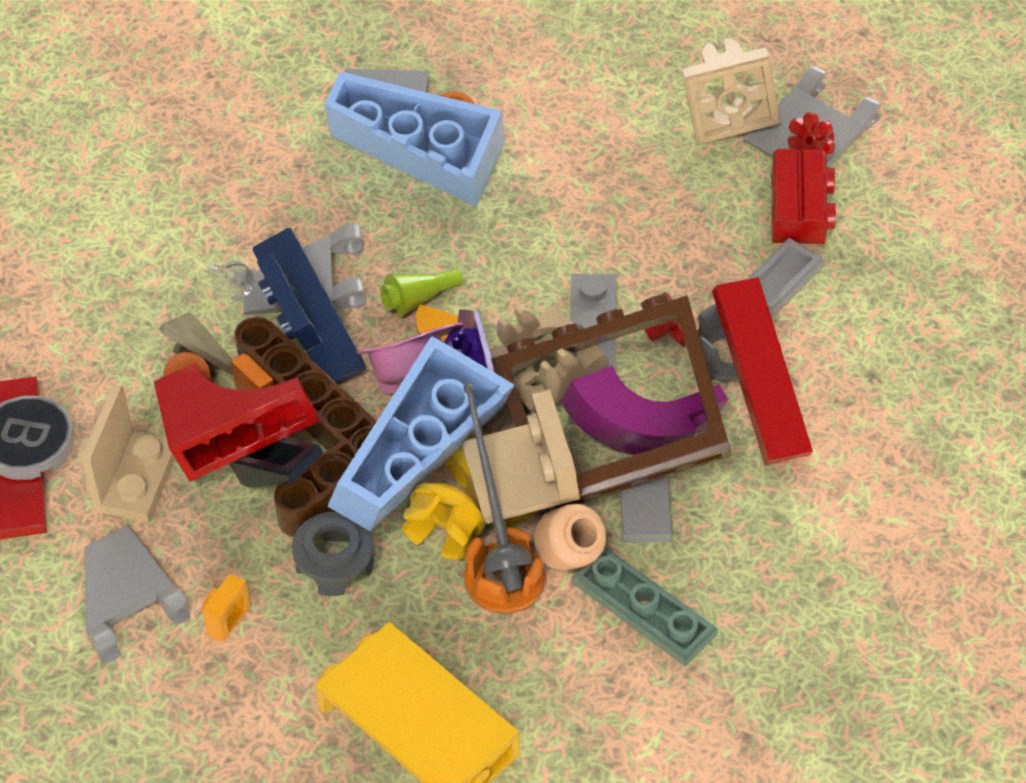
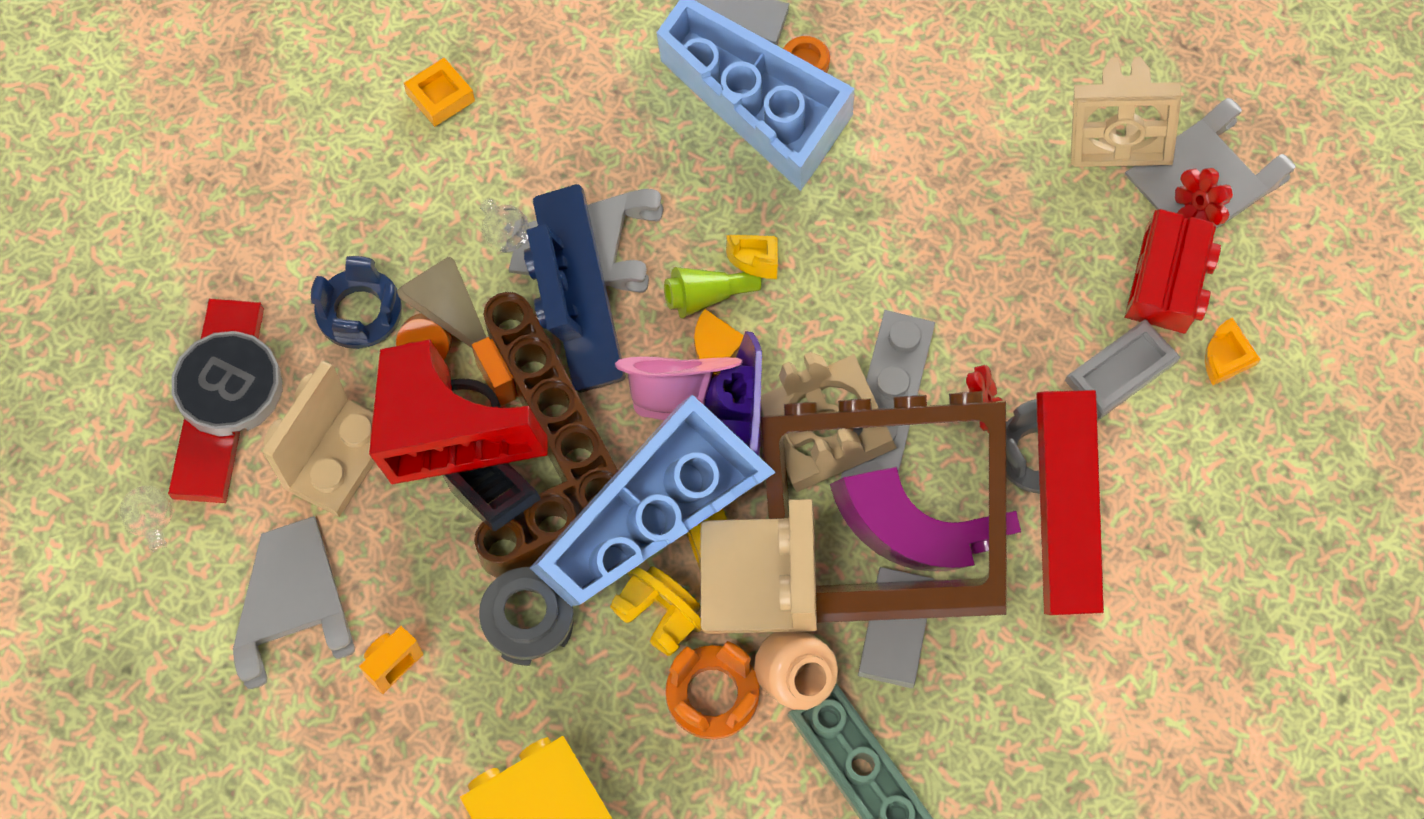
camera: 10 degrees right, 15 degrees up
(120, 340) = (358, 276): none -> dark blue piece
(147, 192) = (439, 92): none -> light orange plate
(455, 254) = (754, 254): none -> yellow tile
(506, 556) = (716, 682): dark grey sword -> none
(864, 249) = (1229, 353): none -> light orange tile

